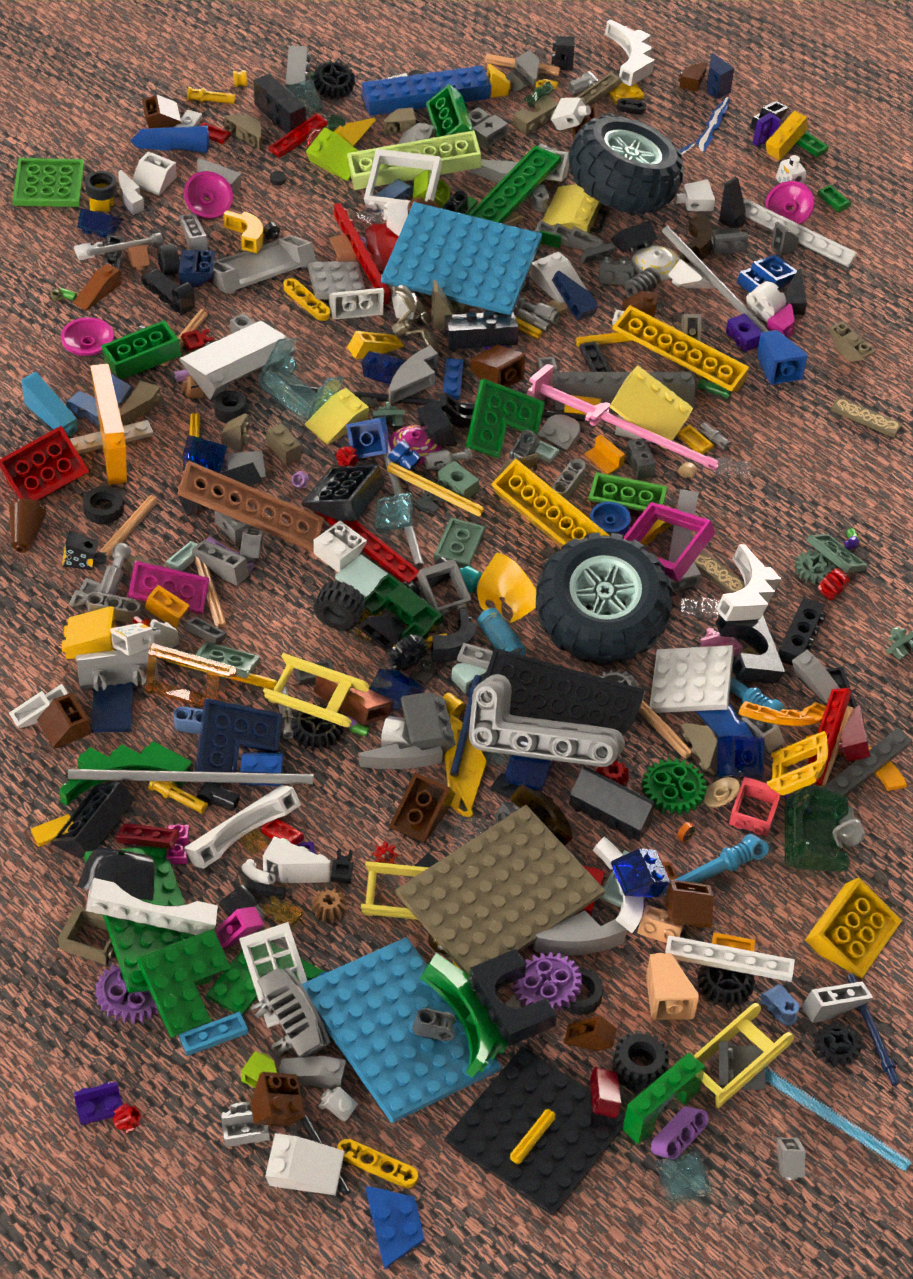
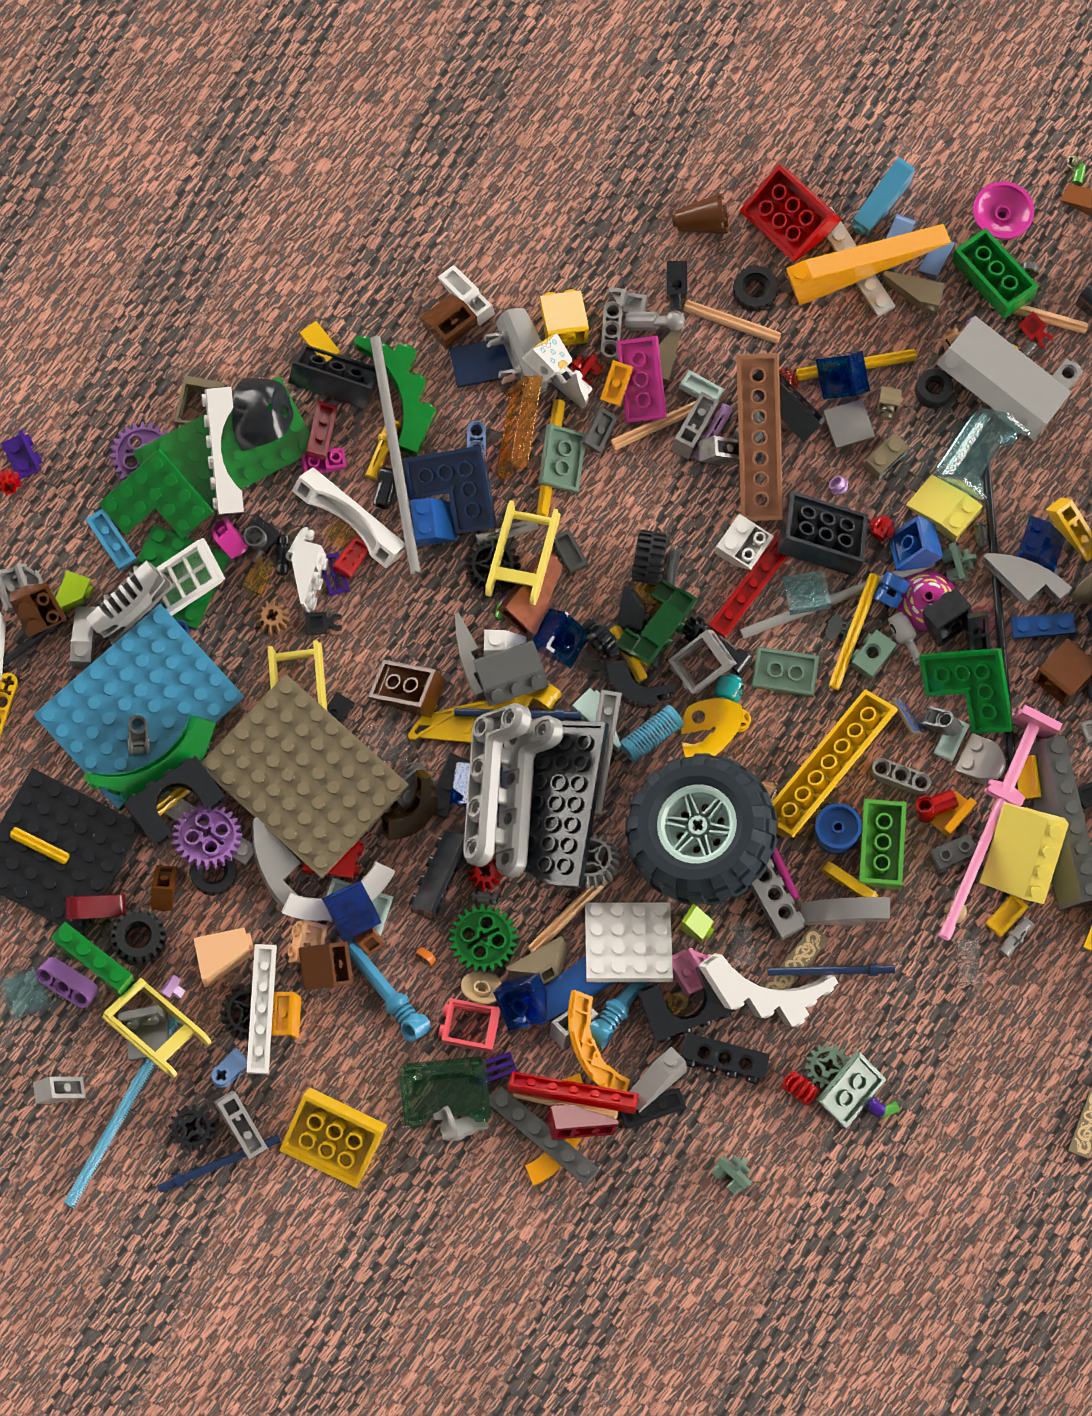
camera: 80 degrees right, 25 degrees up
(246, 895) = (255, 534): none -> dark grey wheel
(338, 1103) = (54, 665): white bracket -> none
(361, 574) = (710, 582): light aqua tile -> none
(382, 850) = (341, 660): red gear -> none
(596, 460) = (936, 804): none -> red piece
(634, 780) = (483, 897): none -> dark grey piece
(674, 516) = (816, 856): dark pink window -> none
(680, 631) = (697, 924): none -> slope
(693, 1041) = (171, 988): none -> lavender tile
(732, 527) = (871, 969): none -> dark blue bar
(785, 782) = (487, 1046): yellow wedge -> none

